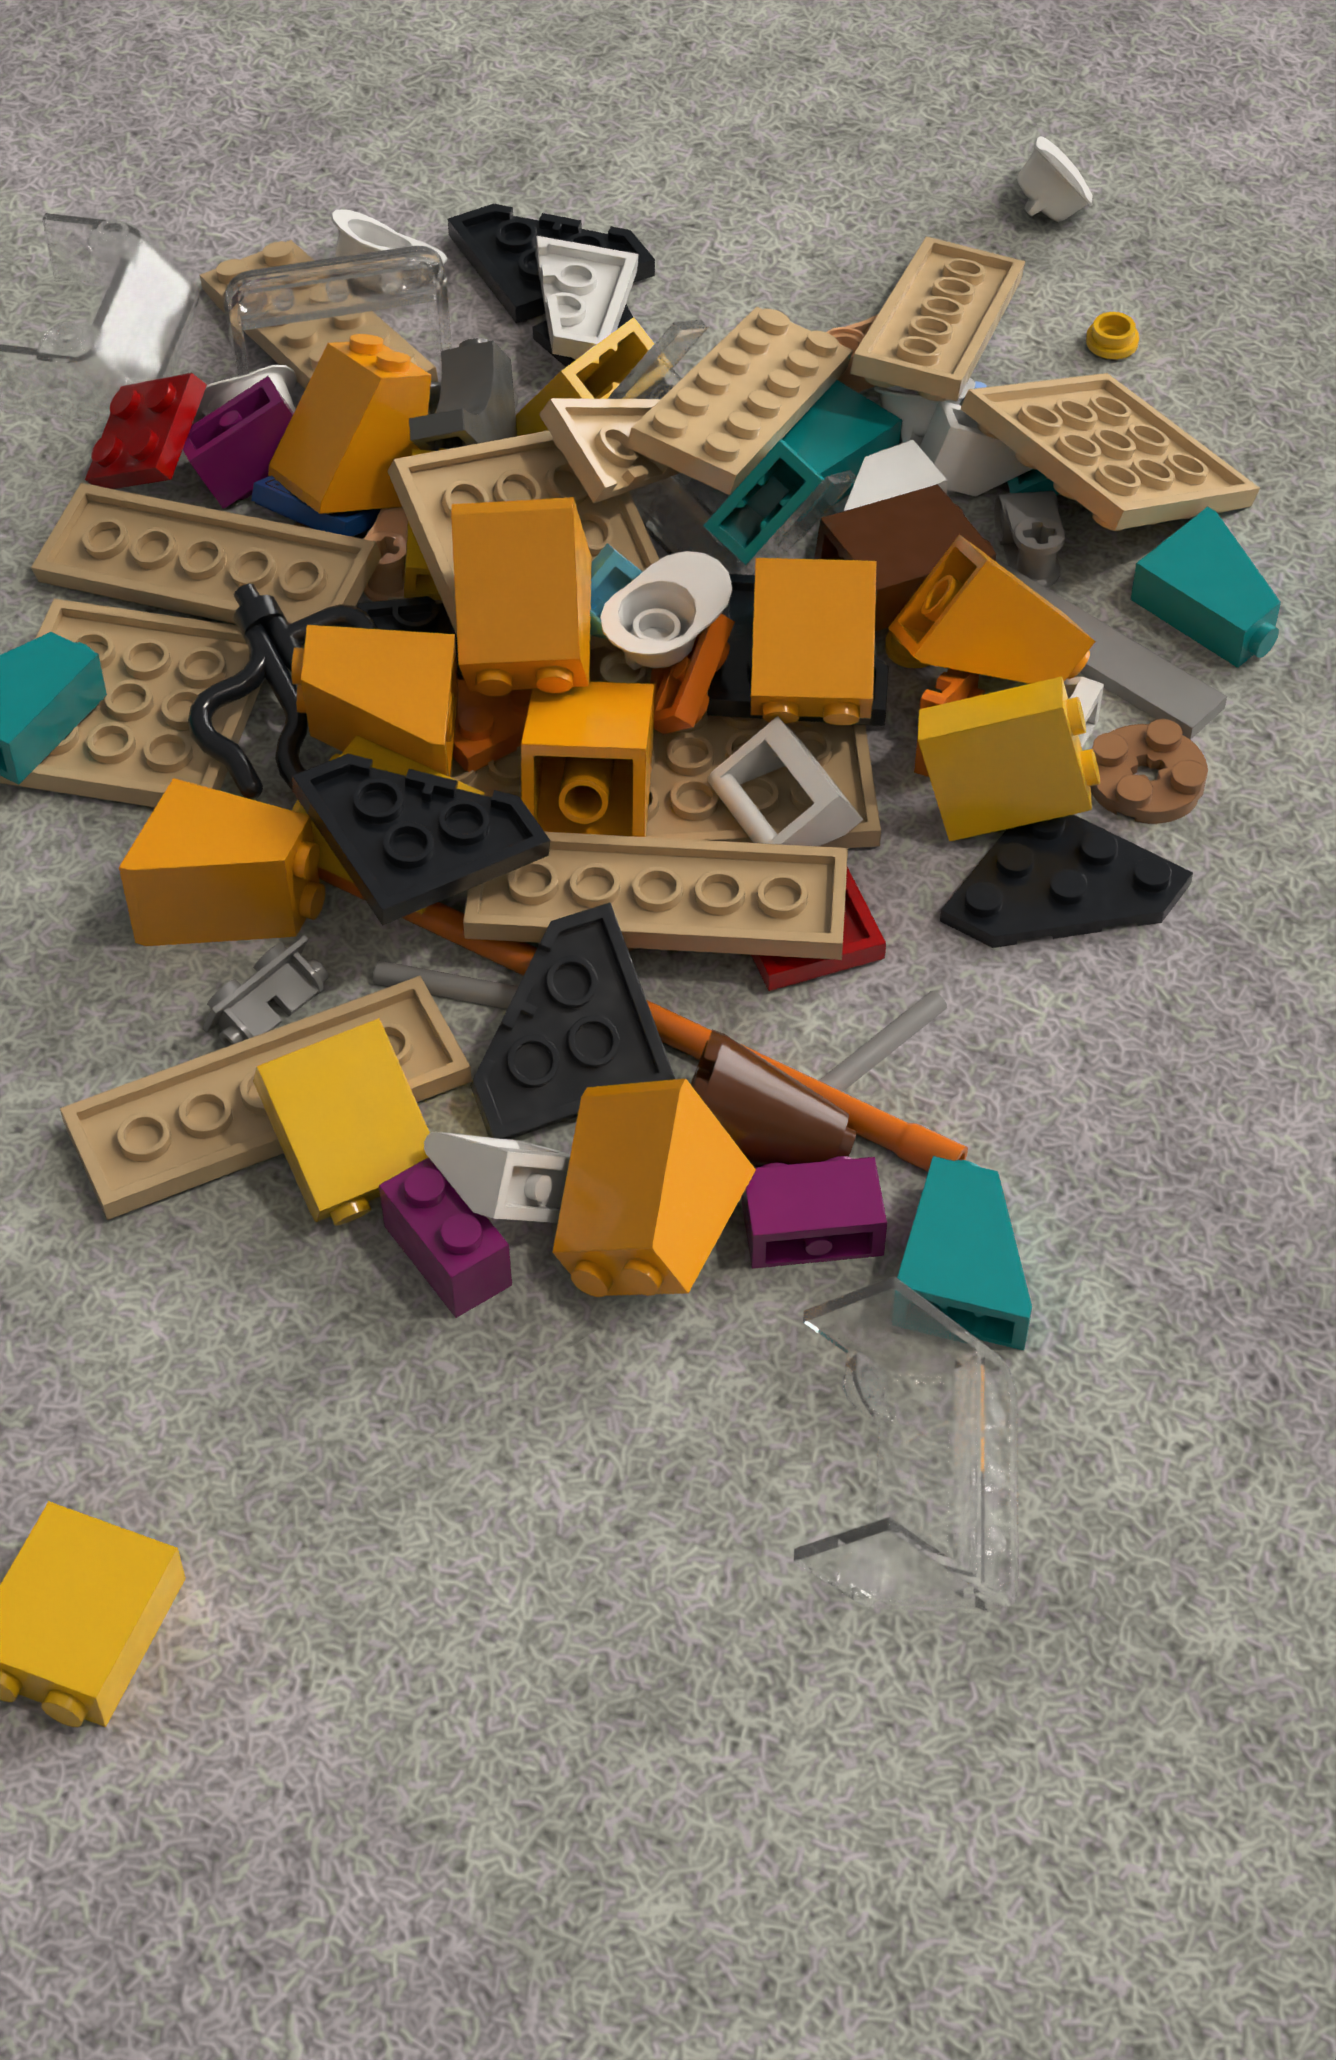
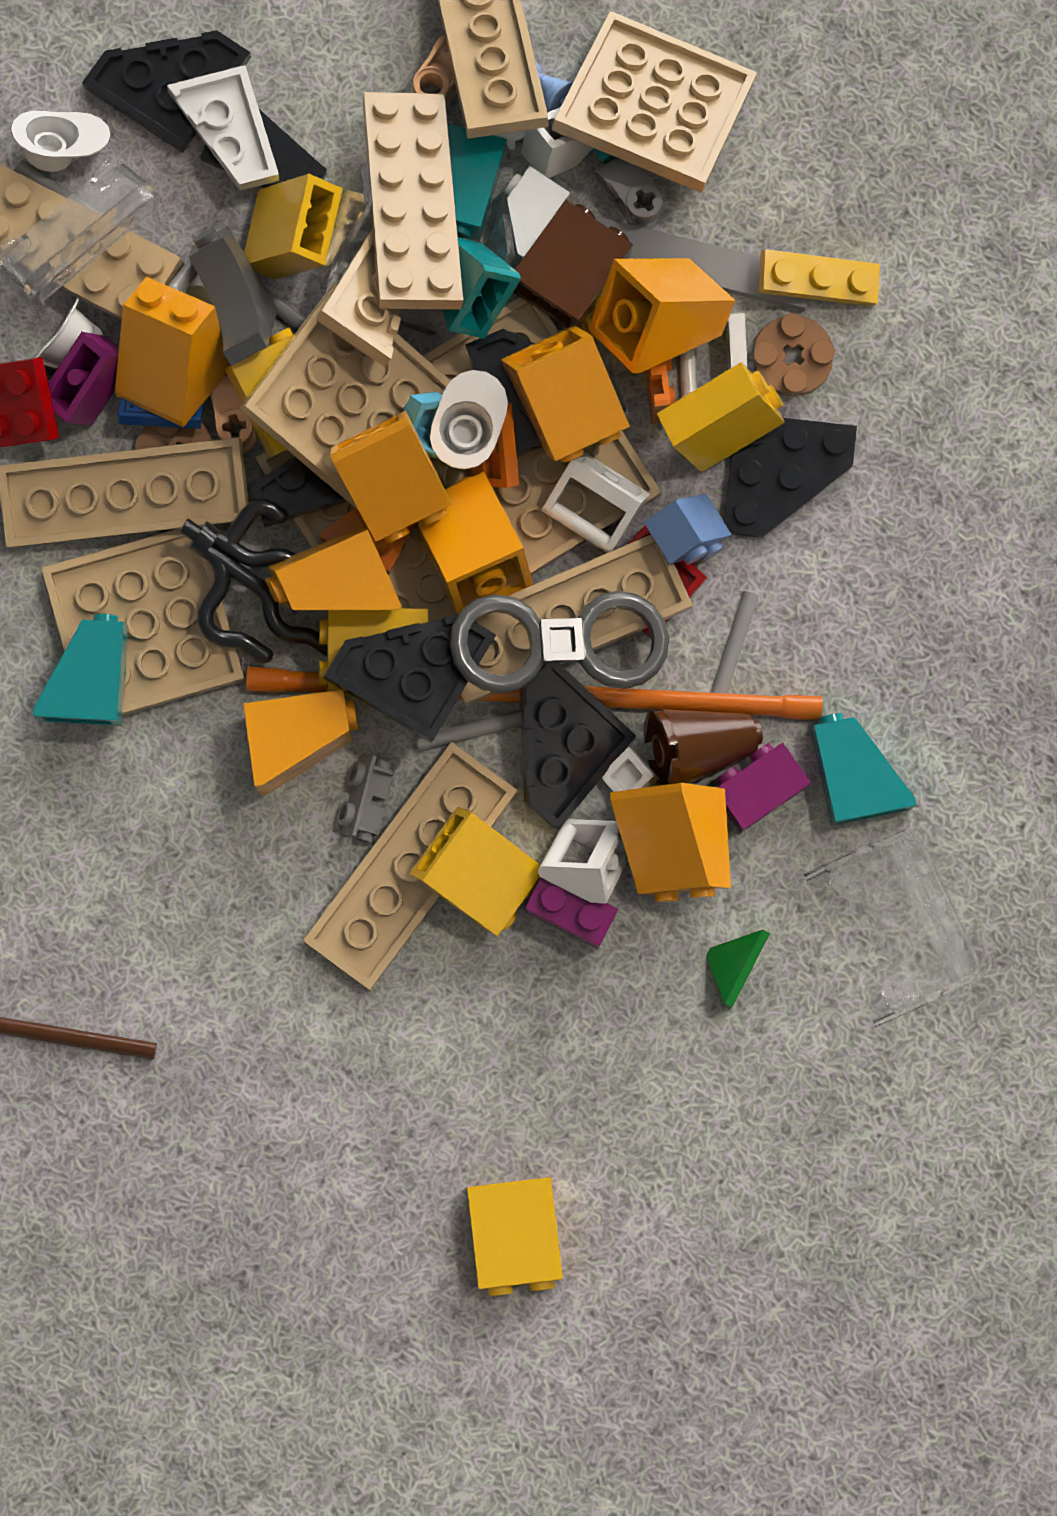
camera: 35 degrees left, 30 degrees up
(632, 886) = (559, 641): none -> dark grey bar
(643, 1418) = (733, 962): none -> green slope
(888, 863) = (688, 530): none -> medium blue brick
(1209, 590) = (768, 185): teal slope -> none
(1227, 700) = (818, 278): none -> yellow plate

